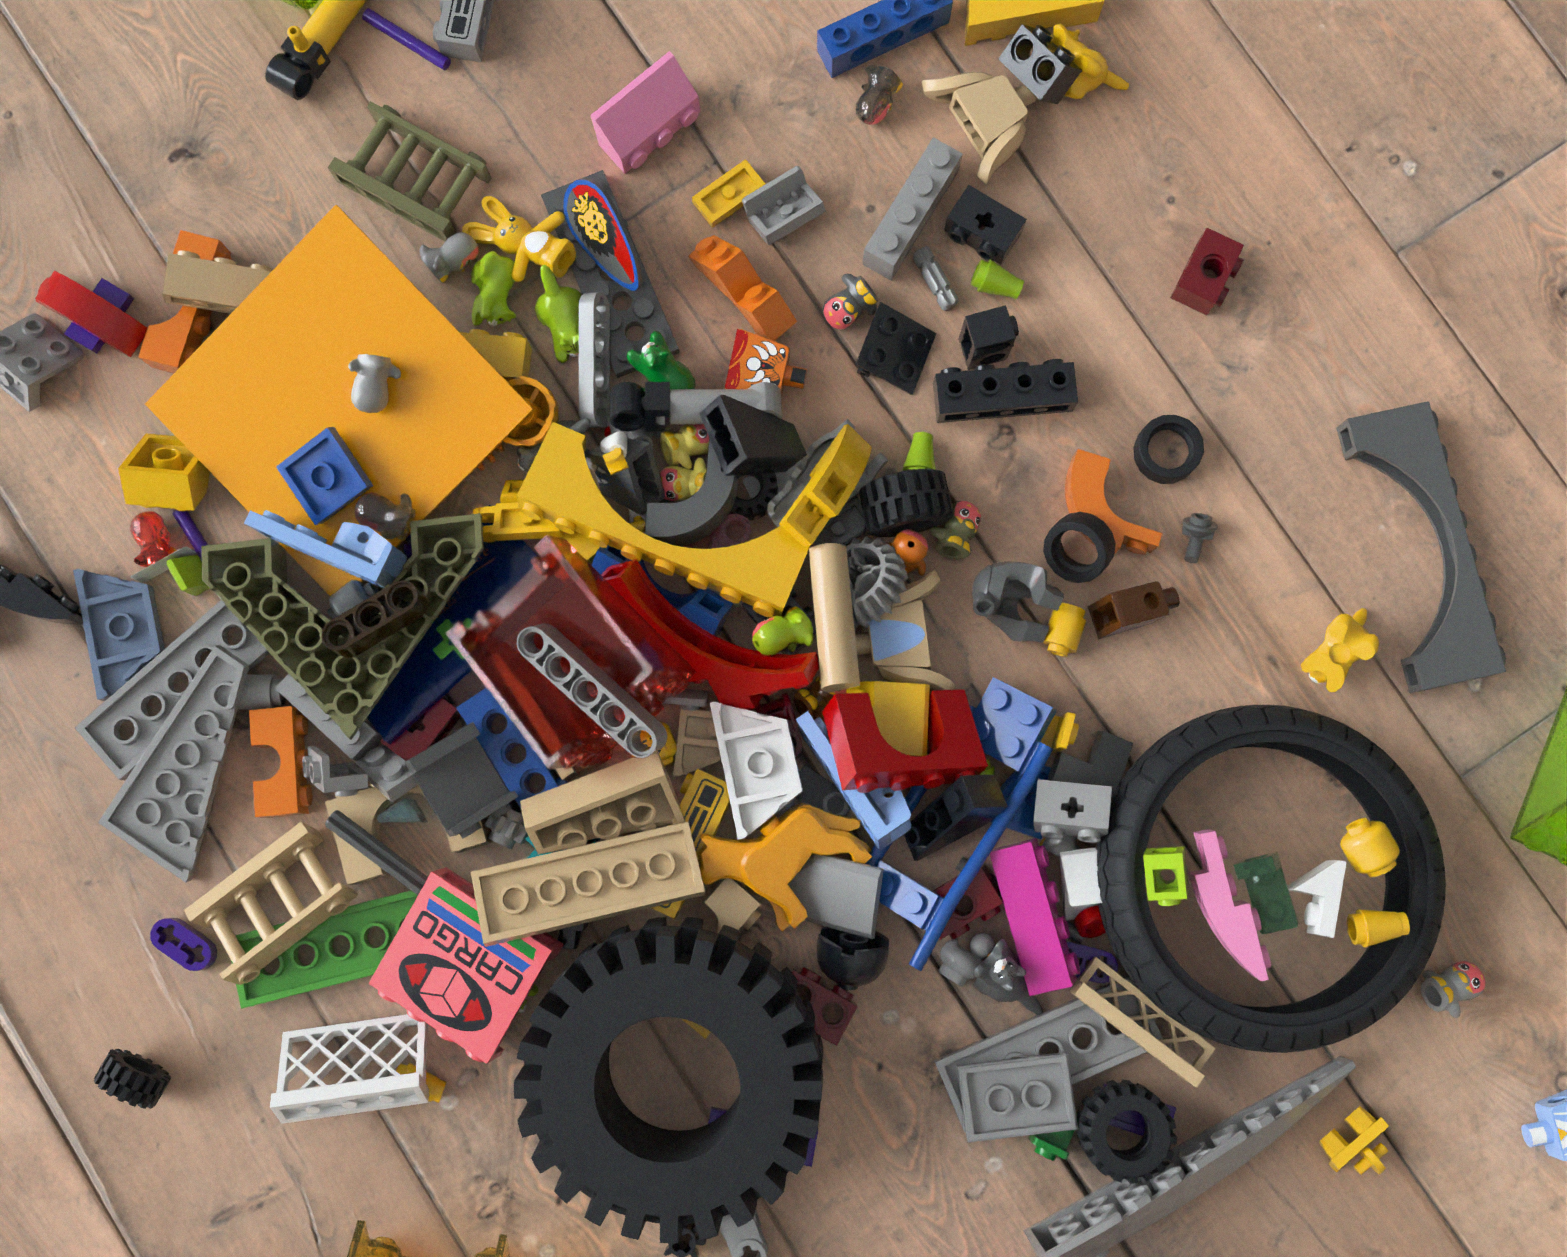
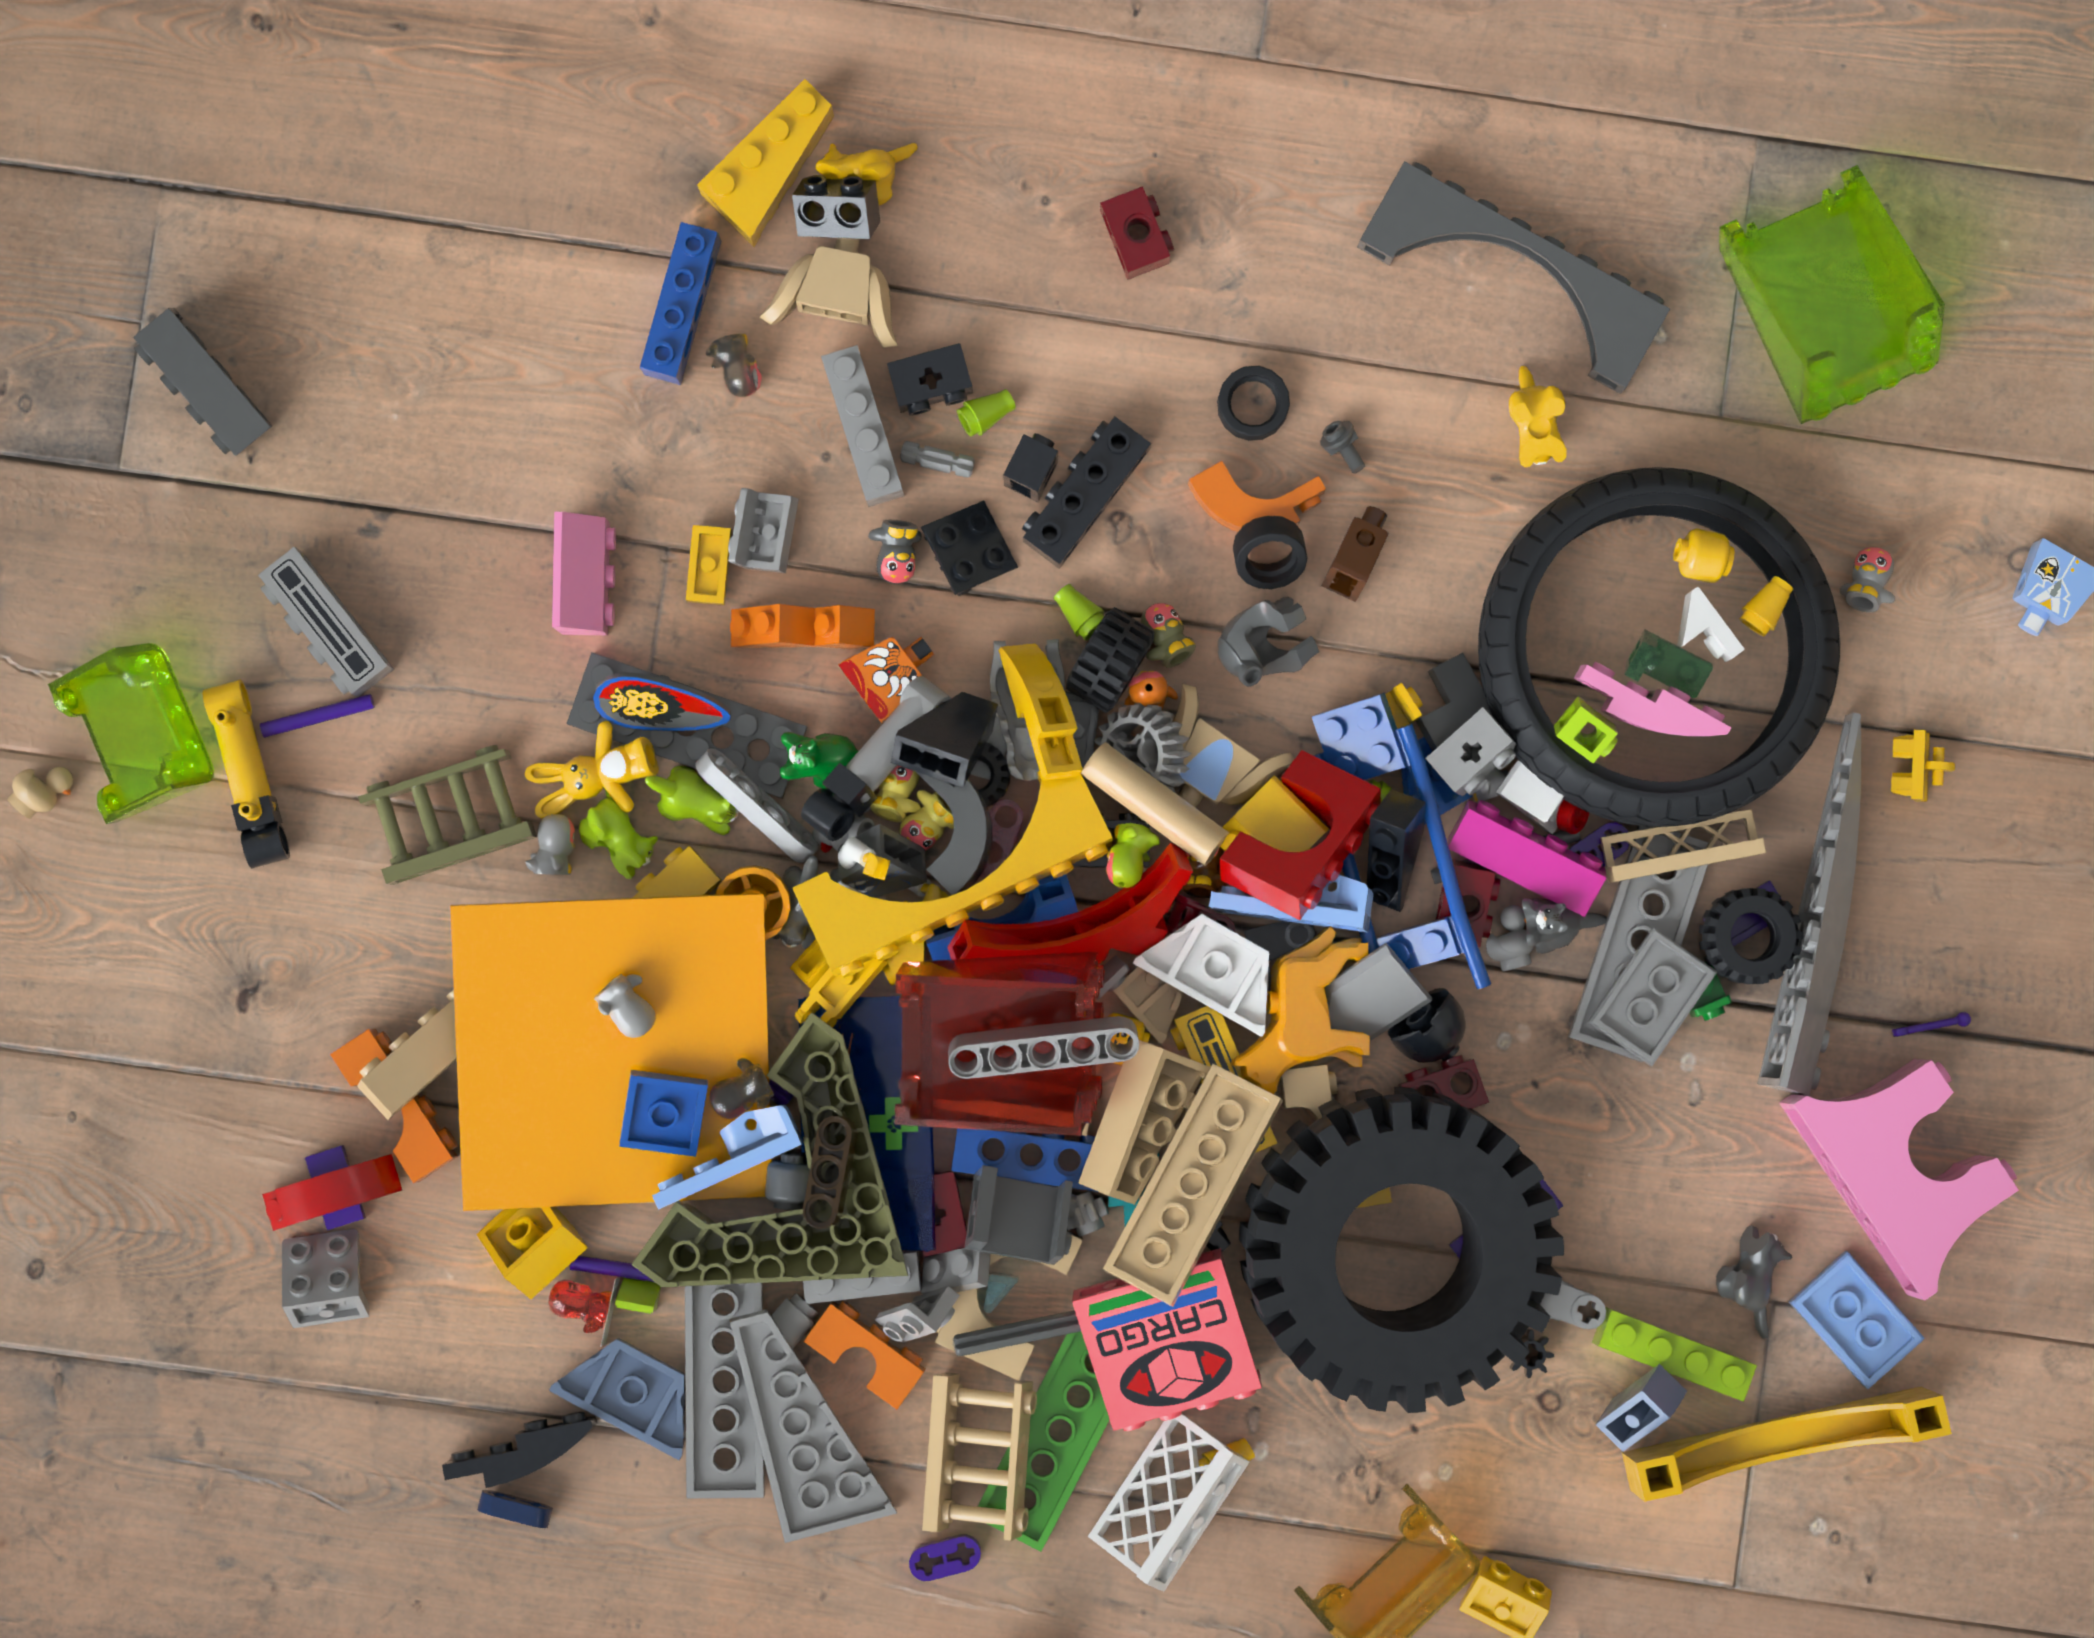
camera: 50 degrees left, 5 degrees up
(1065, 630) = (1325, 623): yellow brick -> none

